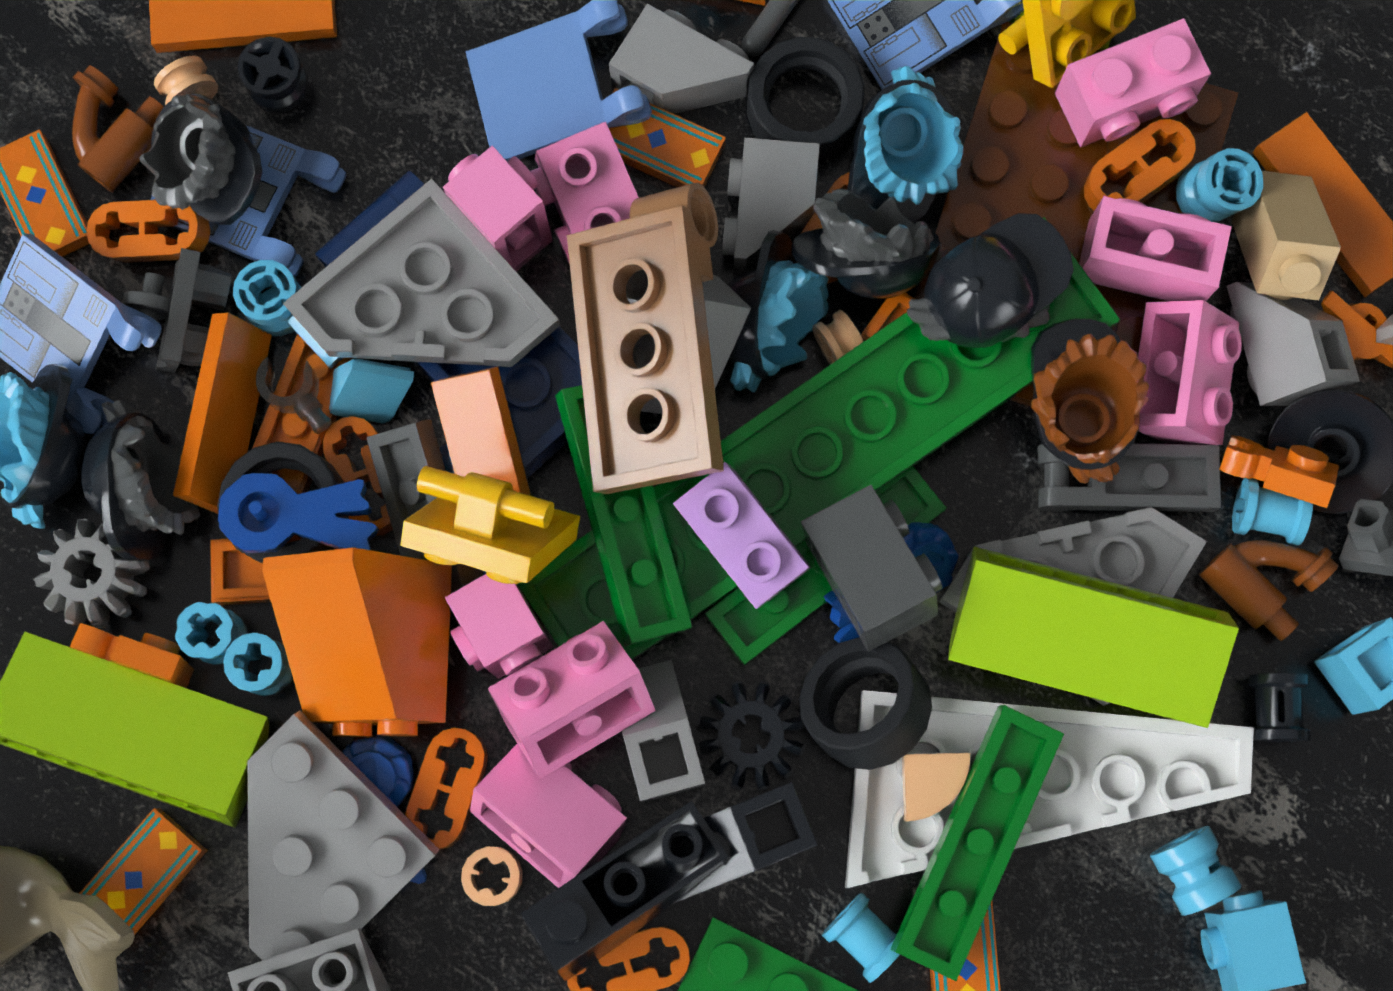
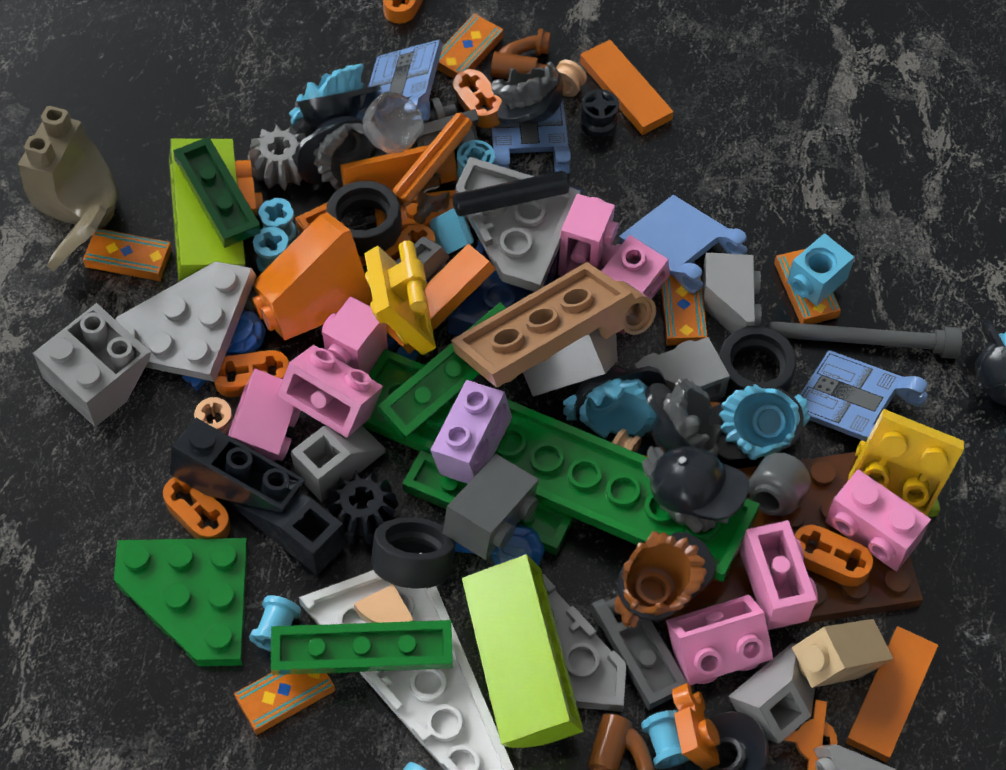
camera: 60 degrees right, 20 degrees down
(125, 703) = (217, 192): none -> dark green plate
(152, 382) = (392, 122): none -> clear hair
(243, 356) = (432, 158): none -> orange axle
(264, 513) = (353, 202): blue piece -> none
(389, 279) = (511, 193): none -> black axle
(1016, 173) = (779, 484): none -> dark grey head
(1220, 185) = (841, 607): medium azure wheel -> none

